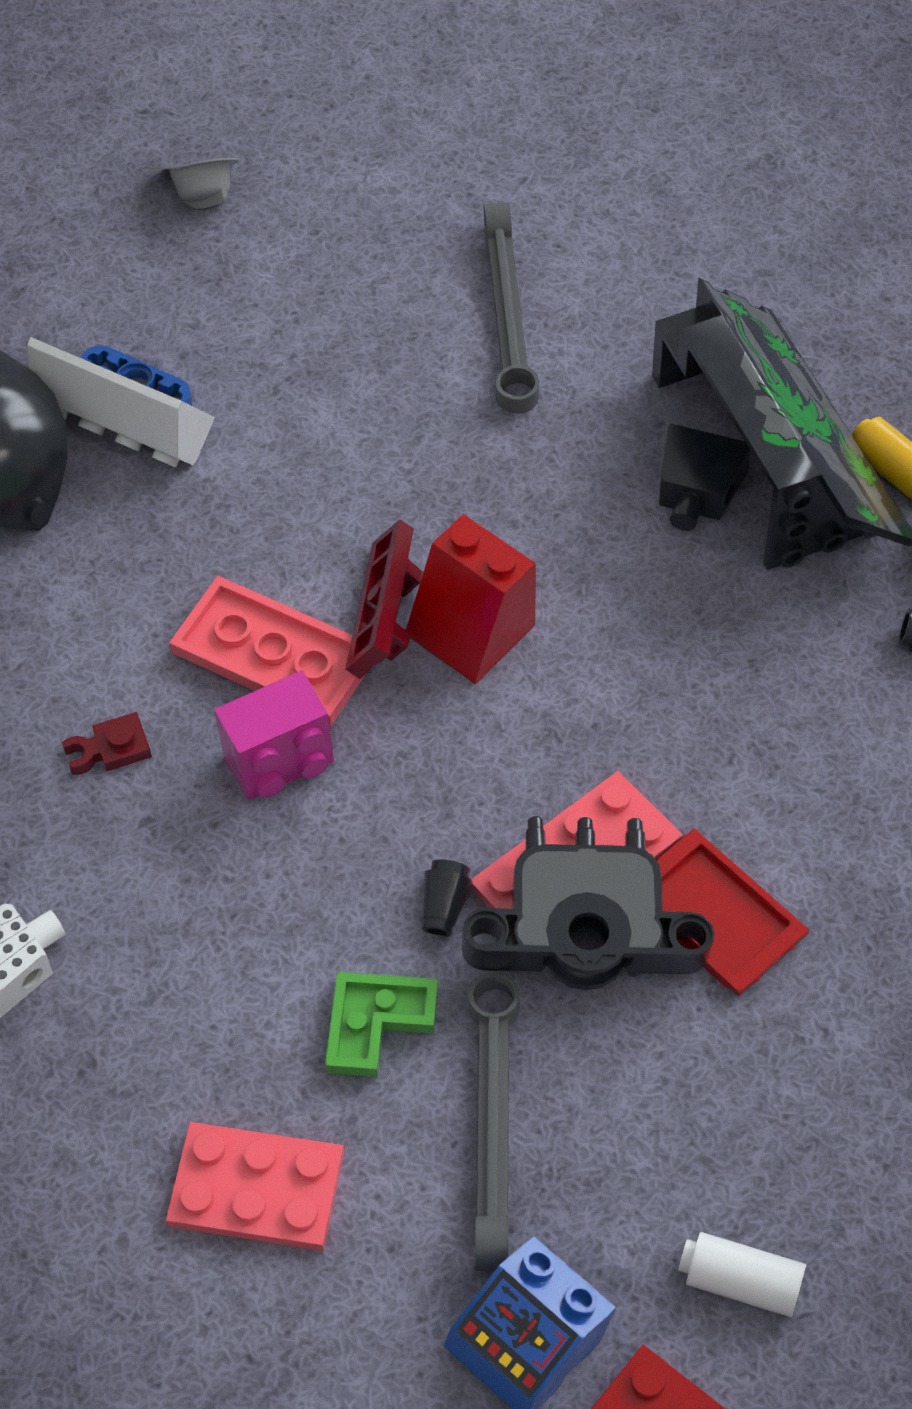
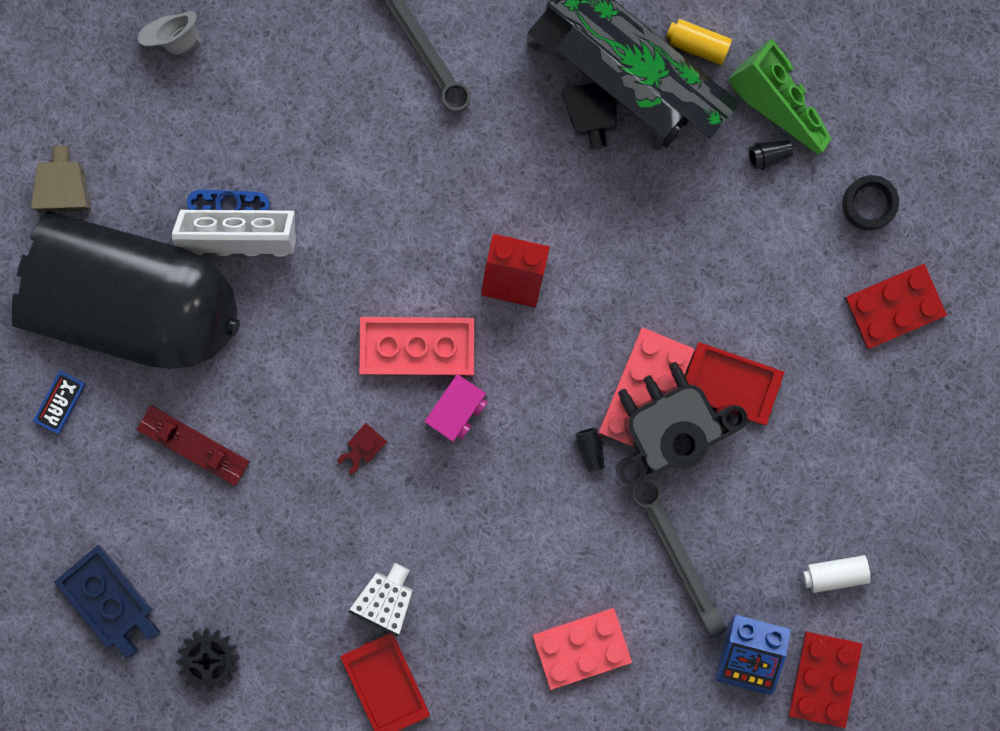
camera: 30 degrees left, 30 degrees up
(365, 1008) = (584, 533): bright green plate -> none
(386, 580) = (462, 290): dark red hinge -> none

